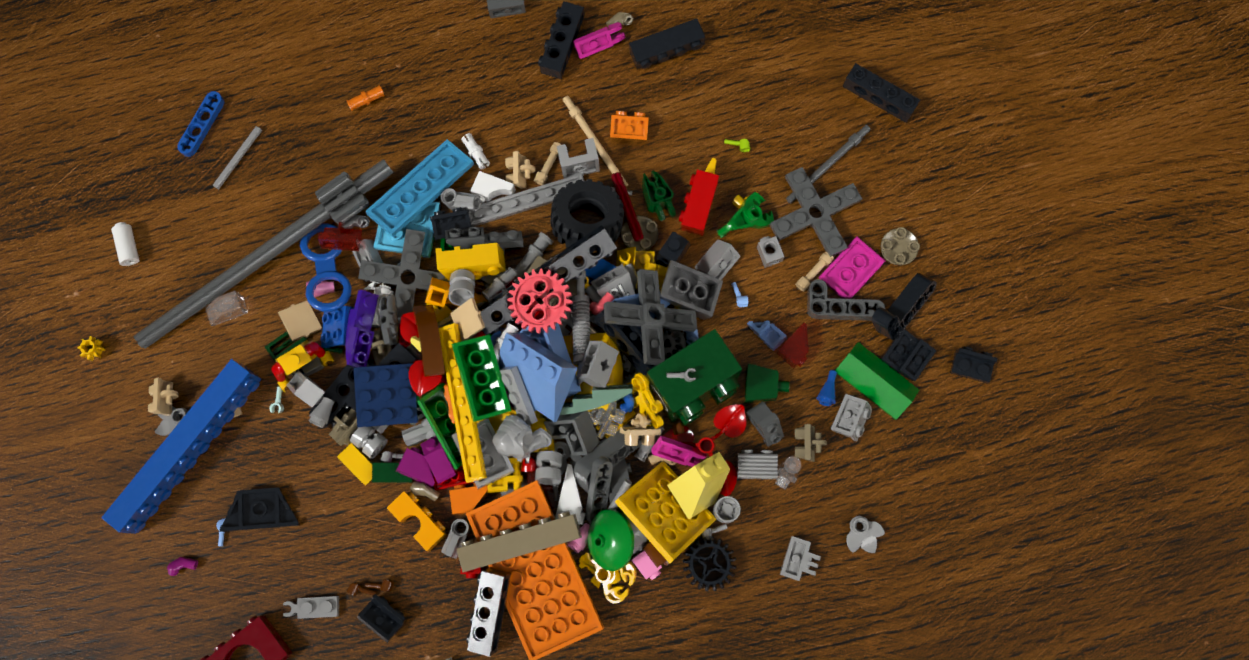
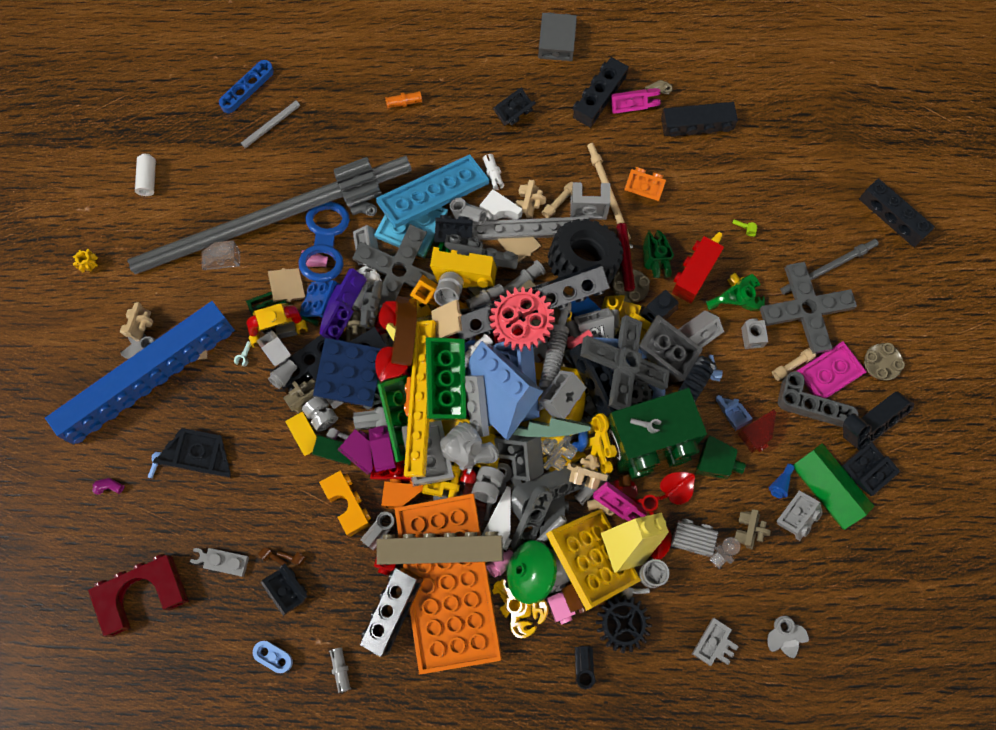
camera: 10 degrees right, 5 degrees down
(340, 238) = (345, 218): clear red panel -> none
(422, 489) = (360, 475): dark tan arm -> none
(478, 78) = (514, 106): none -> black bracket
(521, 221) = (520, 246): none -> tan piece
(682, 611) = (584, 665): none -> black piece
(724, 312) = (698, 376): none -> black gear
(766, 423) = (713, 498): dark grey pin -> none
(973, 364) = (934, 495): black bracket -> none

